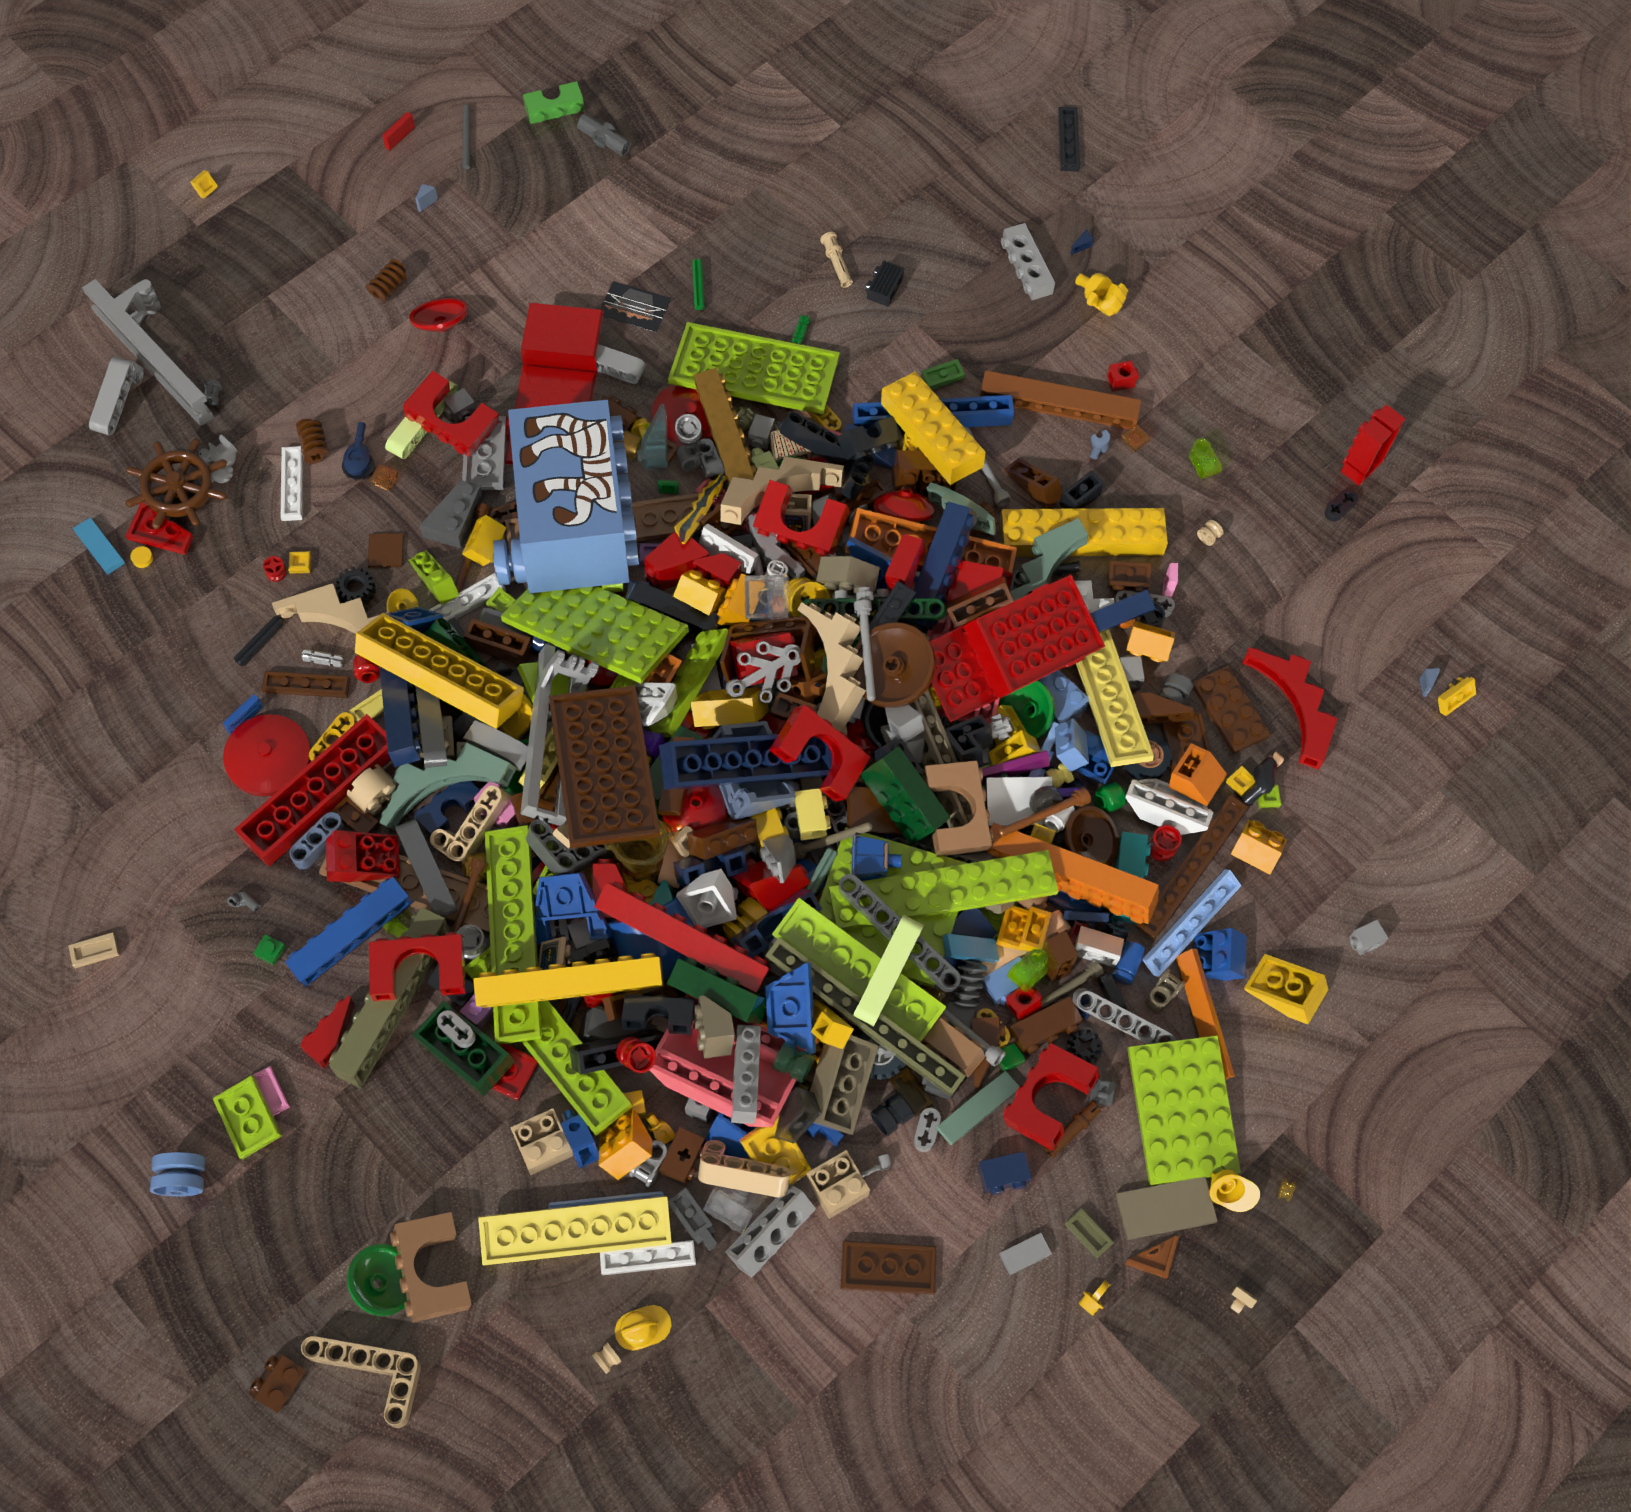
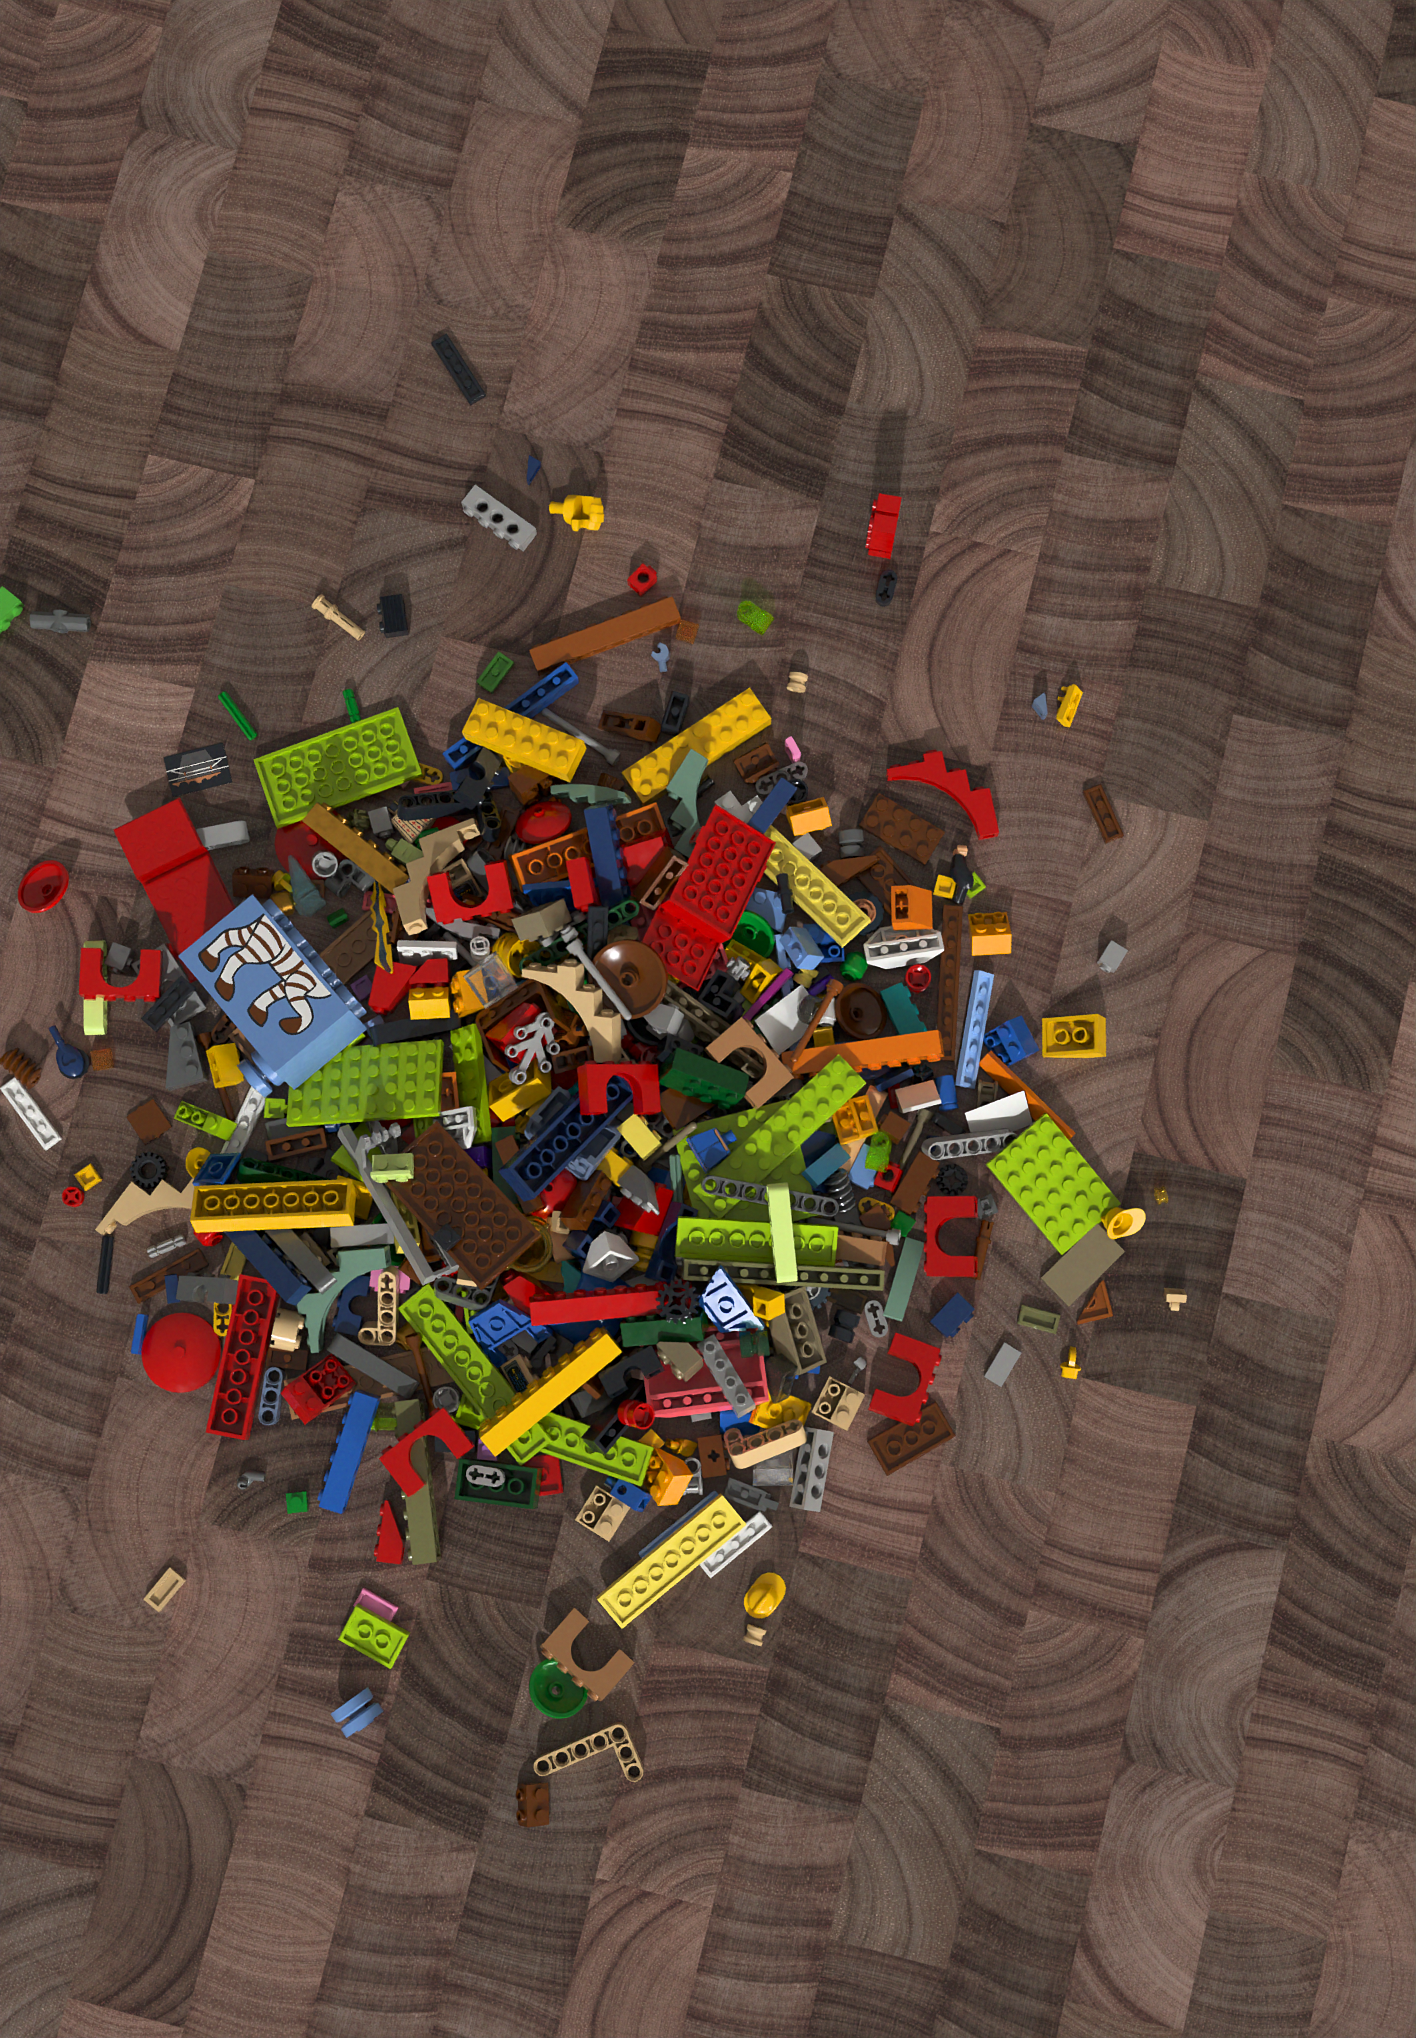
camera: 25 degrees left, 15 degrees up
(300, 694) = (171, 1284): none -> dark blue piece
(322, 705) = (220, 1289): none -> dark grey arch
(473, 462) = (168, 1003): none -> black plate
(567, 697) = (392, 1167): none -> yellowish green bracket
(571, 782) = (446, 1237): none -> black plate
(758, 970) = (684, 1297): none -> black gear
(903, 1230) = (924, 1359): none -> red arch
(1086, 690) = (785, 893): none -> black pin
(1172, 1012) = (1006, 1113): none -> white sticker
(1434, 808) = (1103, 813): none -> reddish brown tile

